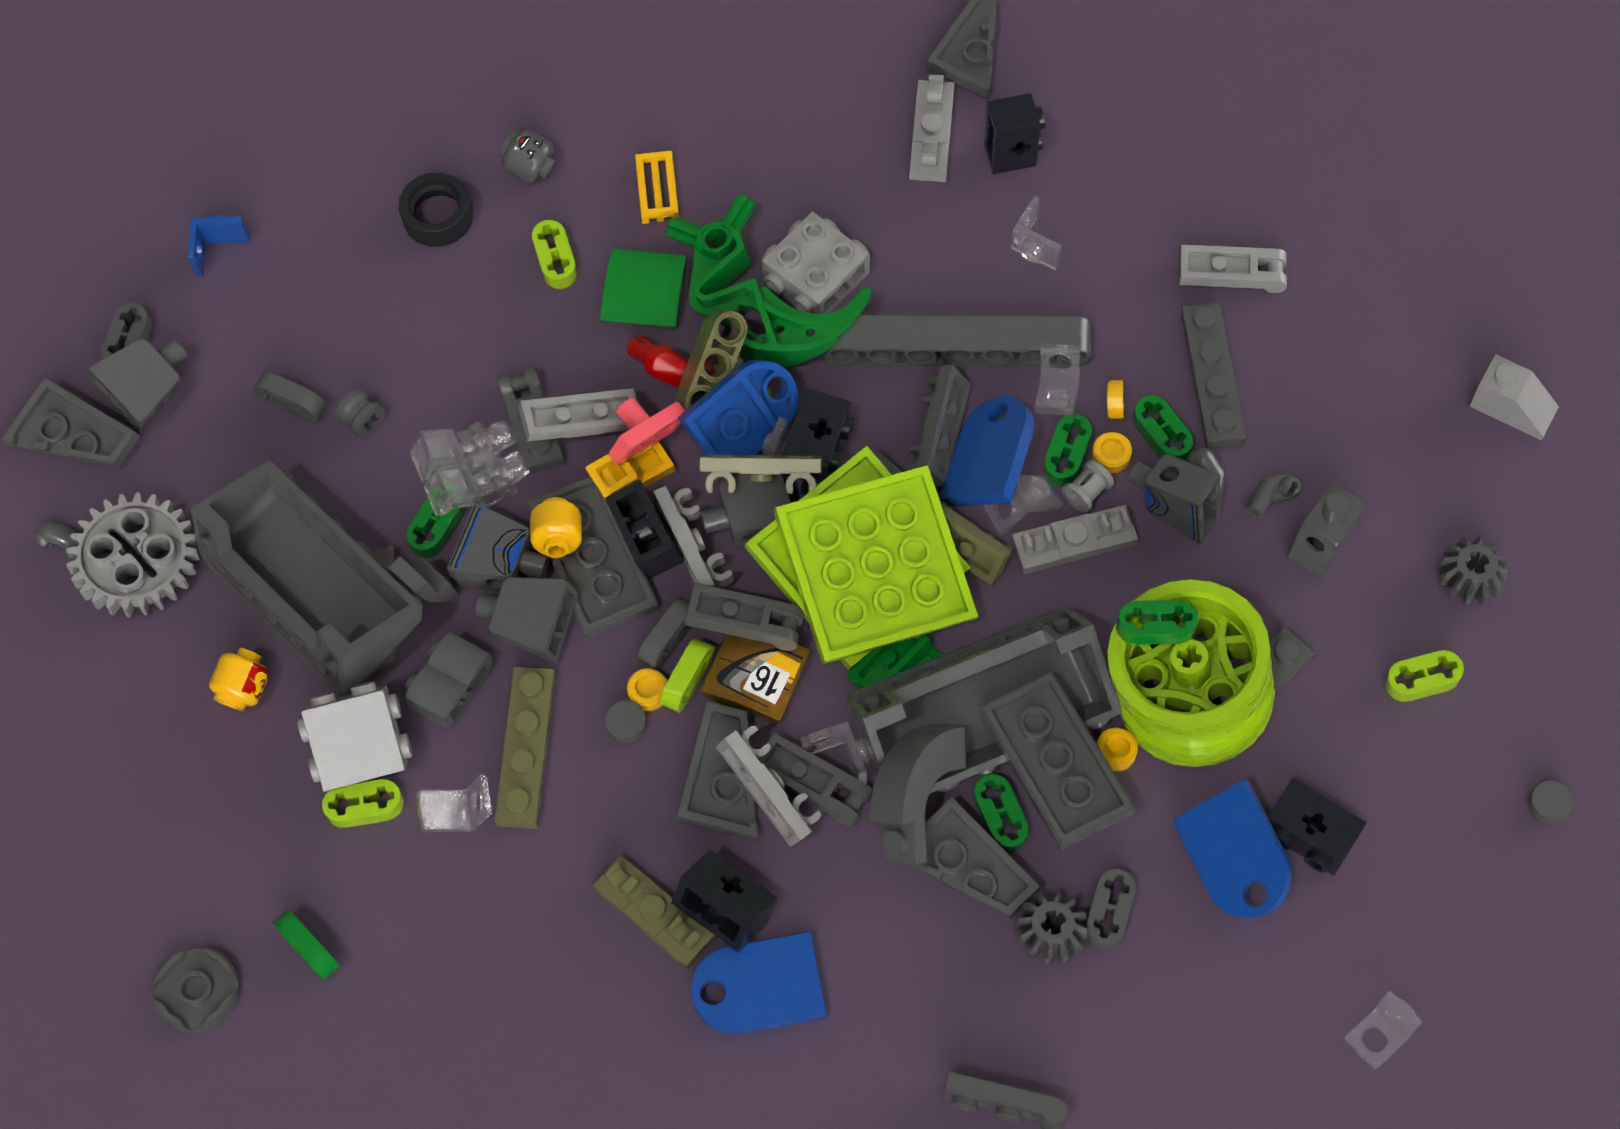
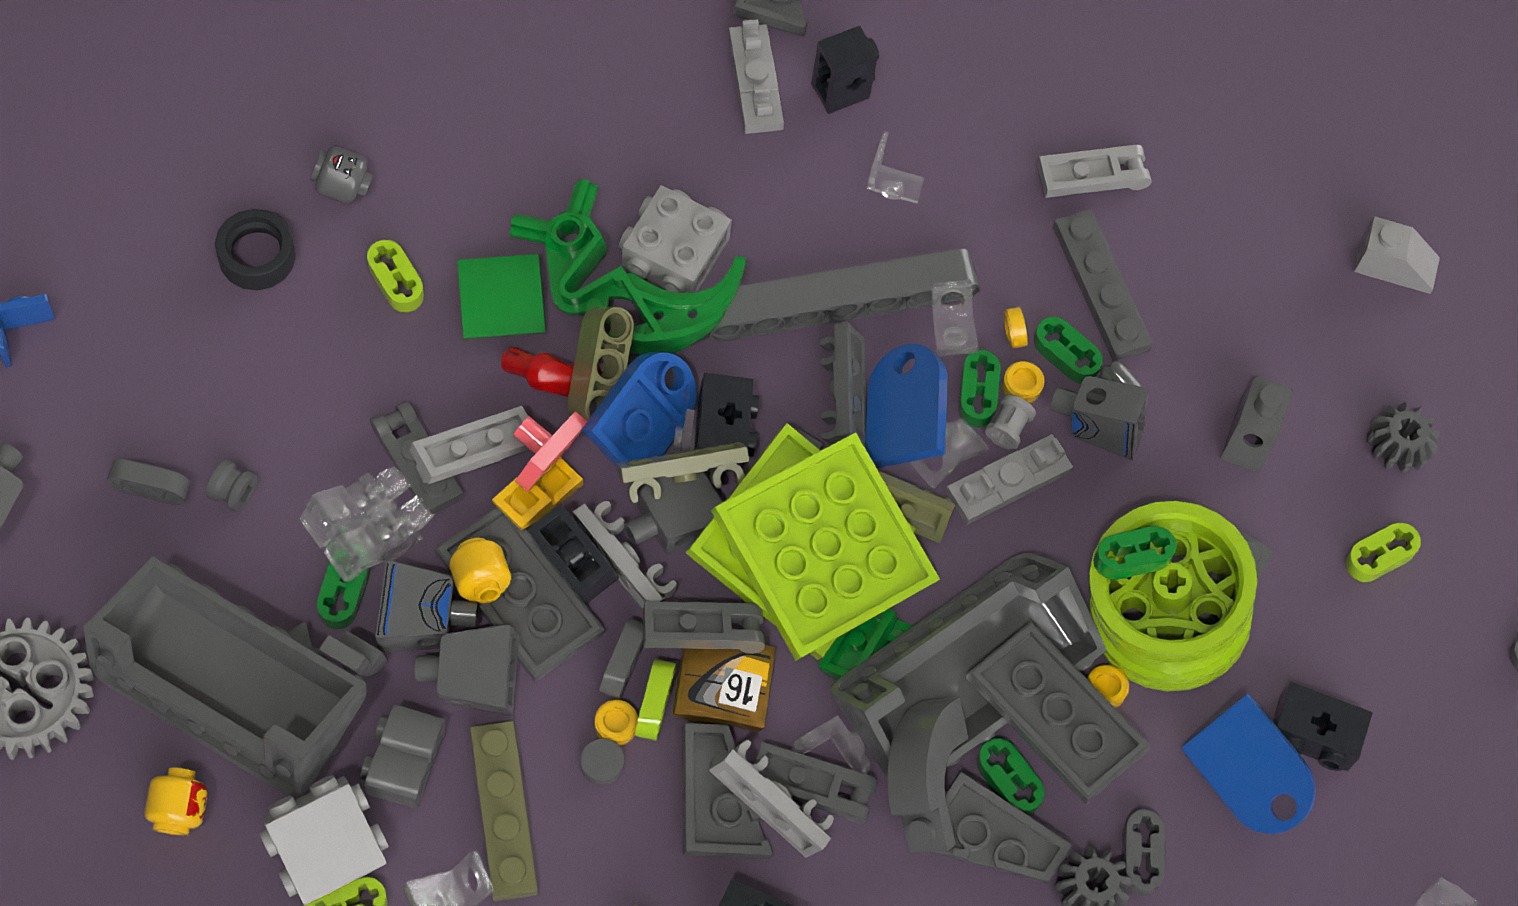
camera: 25 degrees left, 0 degrees up
(659, 211) = (494, 212): yellow tile -> none
(1270, 491) = (1191, 392): dark grey arm -> none

